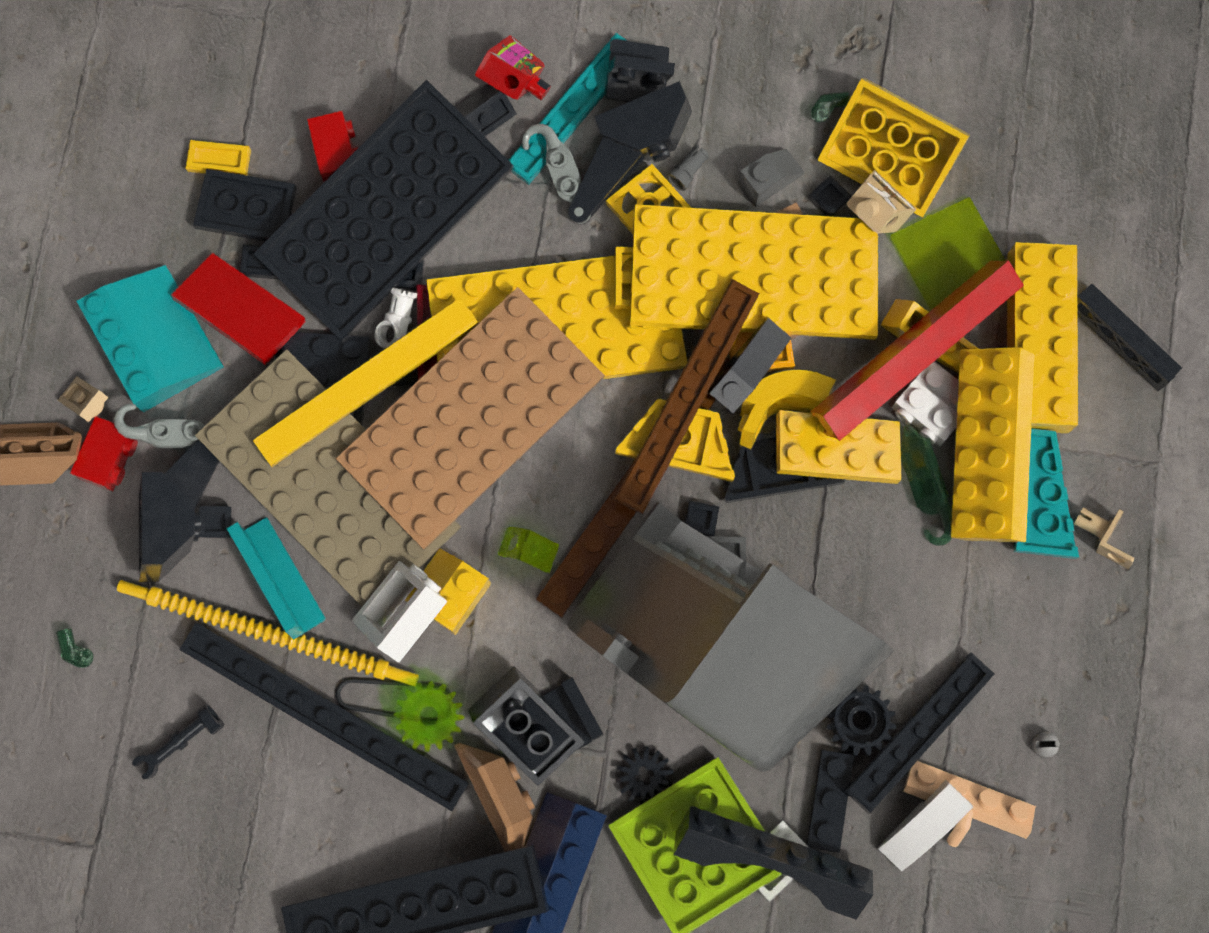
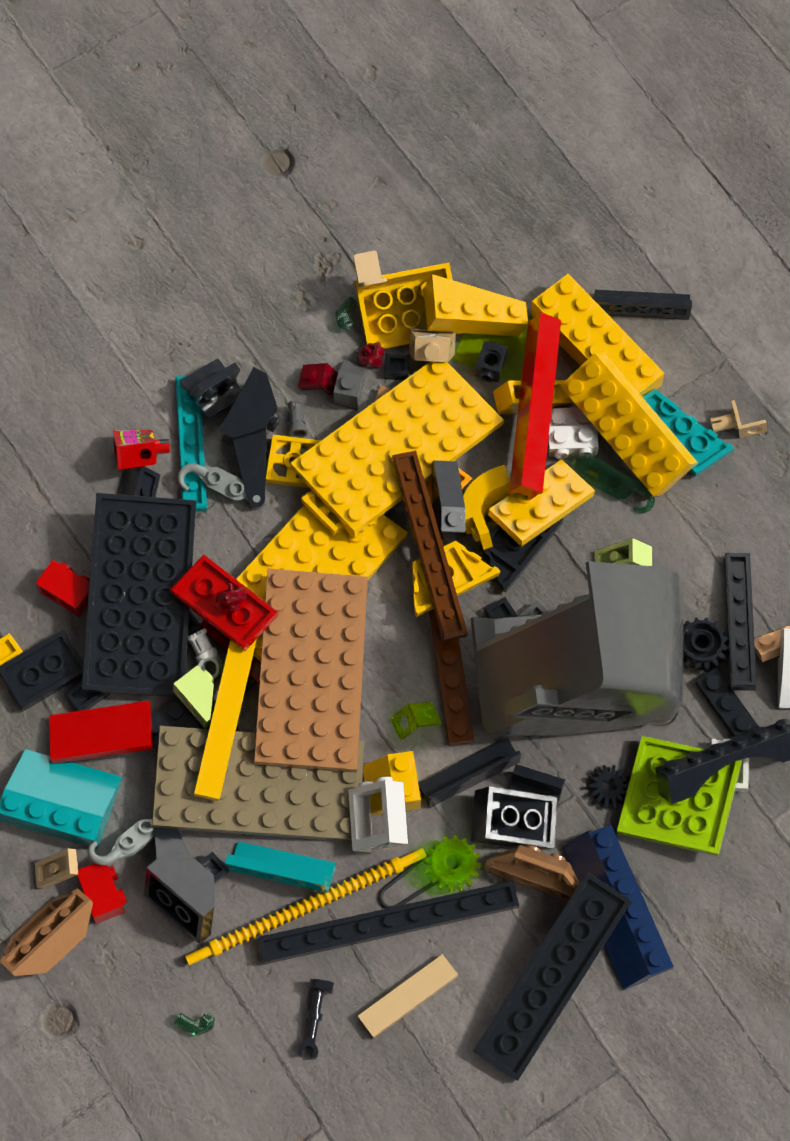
camera: 45 degrees left, 10 degrees down
(277, 799) = (407, 996): none -> tan tile
(348, 348) = (196, 693): none -> yellowish green slope
(447, 285) = (199, 592): none -> red tile
(451, 286) = (232, 597): none -> dark red piece
(528, 643) = (469, 772): none -> black panel
(744, 143) = (318, 377): none -> dark red bracket
(814, 165) = (371, 355): none -> dark red piece
(865, 571) = (626, 552): none -> yellowish green slope
(881, 77) = (368, 268): none -> tan bracket
(927, 258) = (494, 353): none -> black brick
(947, 202) = (471, 310): none -> yellow wedge

